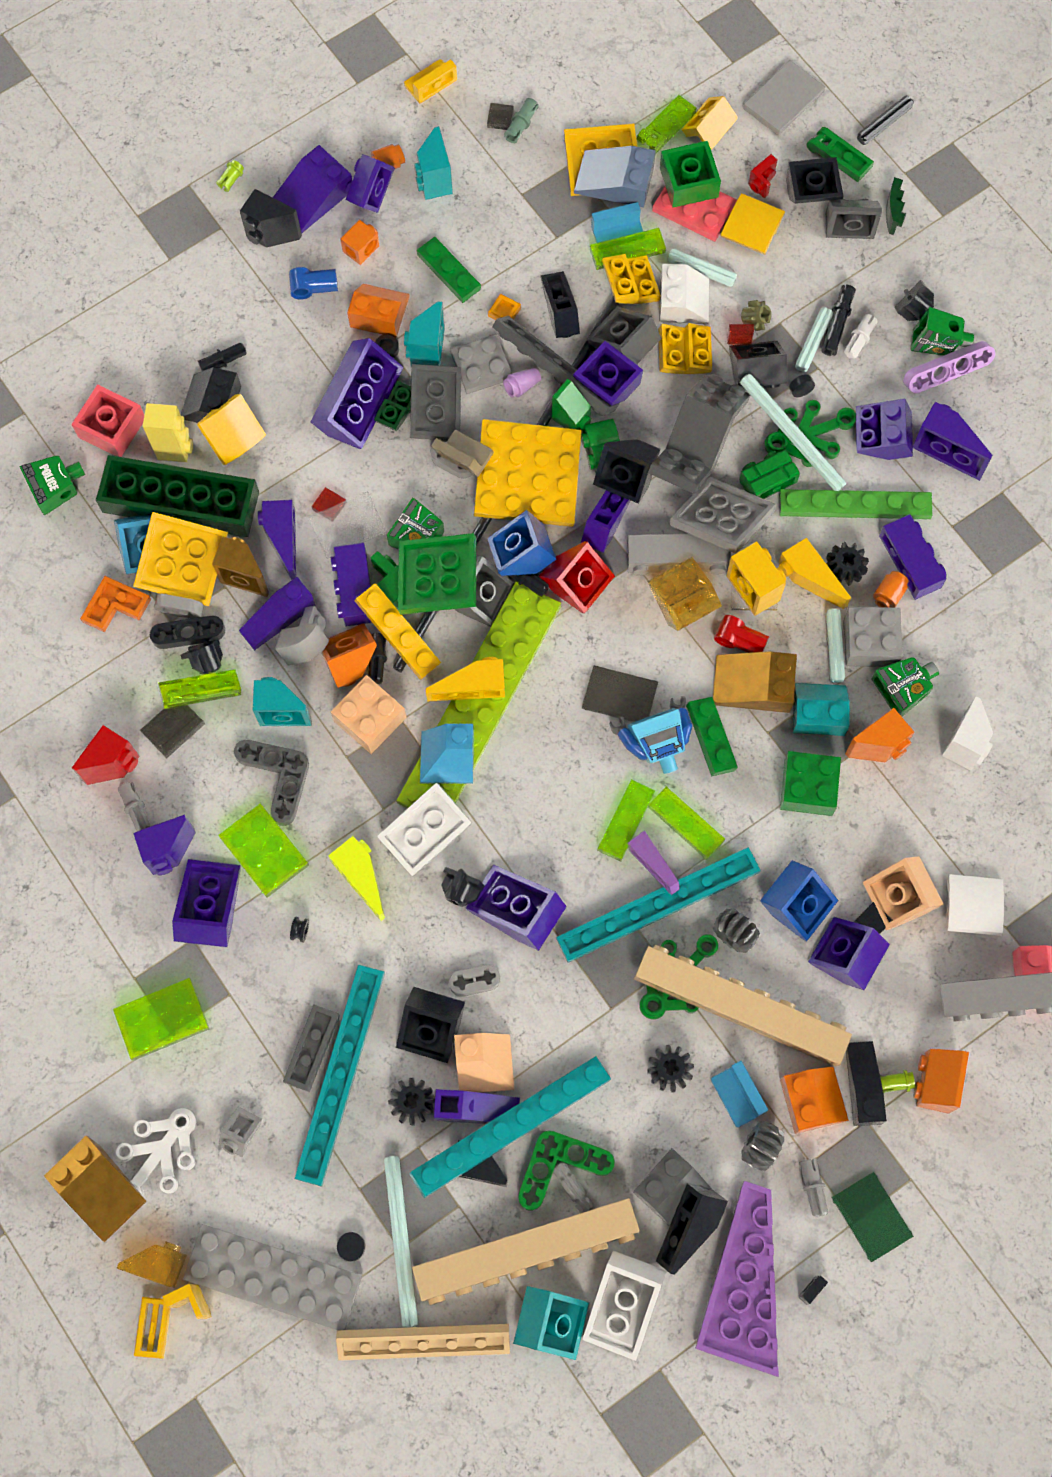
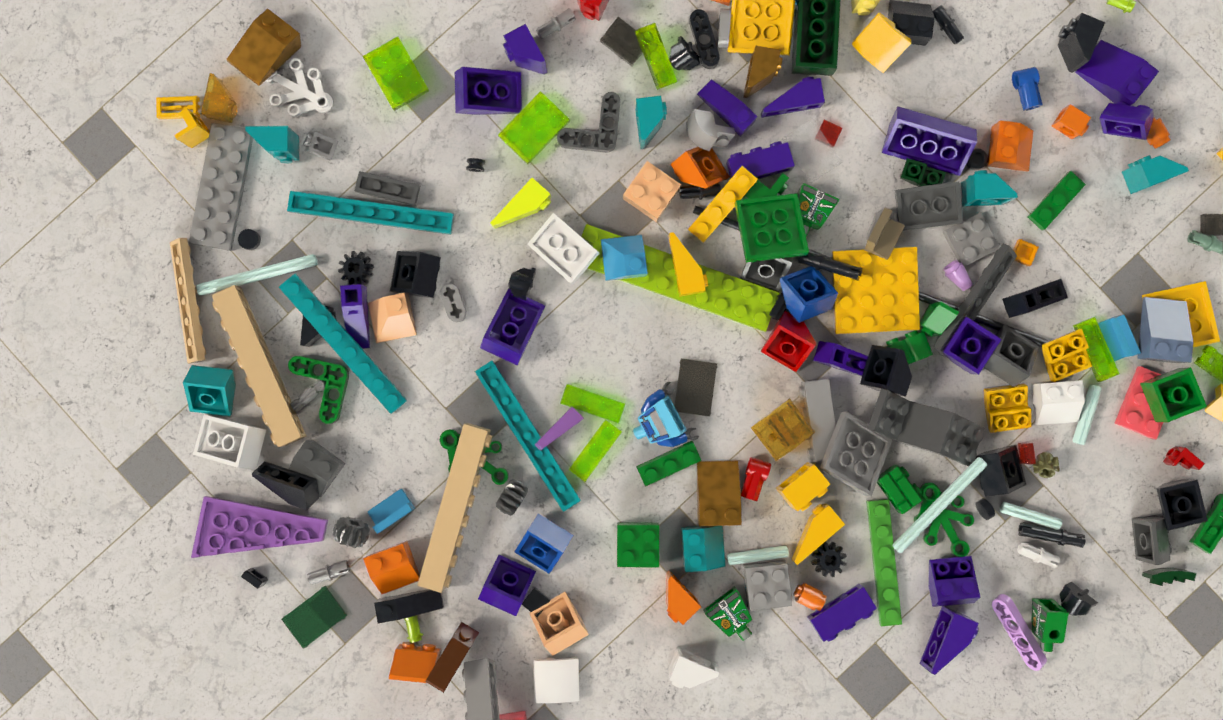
camera: 80 degrees right, 15 degrees up
(226, 1186) = (277, 141): none -> teal slope
(492, 515) = (833, 266): none -> black pin
(679, 1066) = (405, 465): black gear -> none
(752, 223) = (1135, 454): yellow slope -> none
(935, 1025) = (452, 657): none -> reddish brown slope

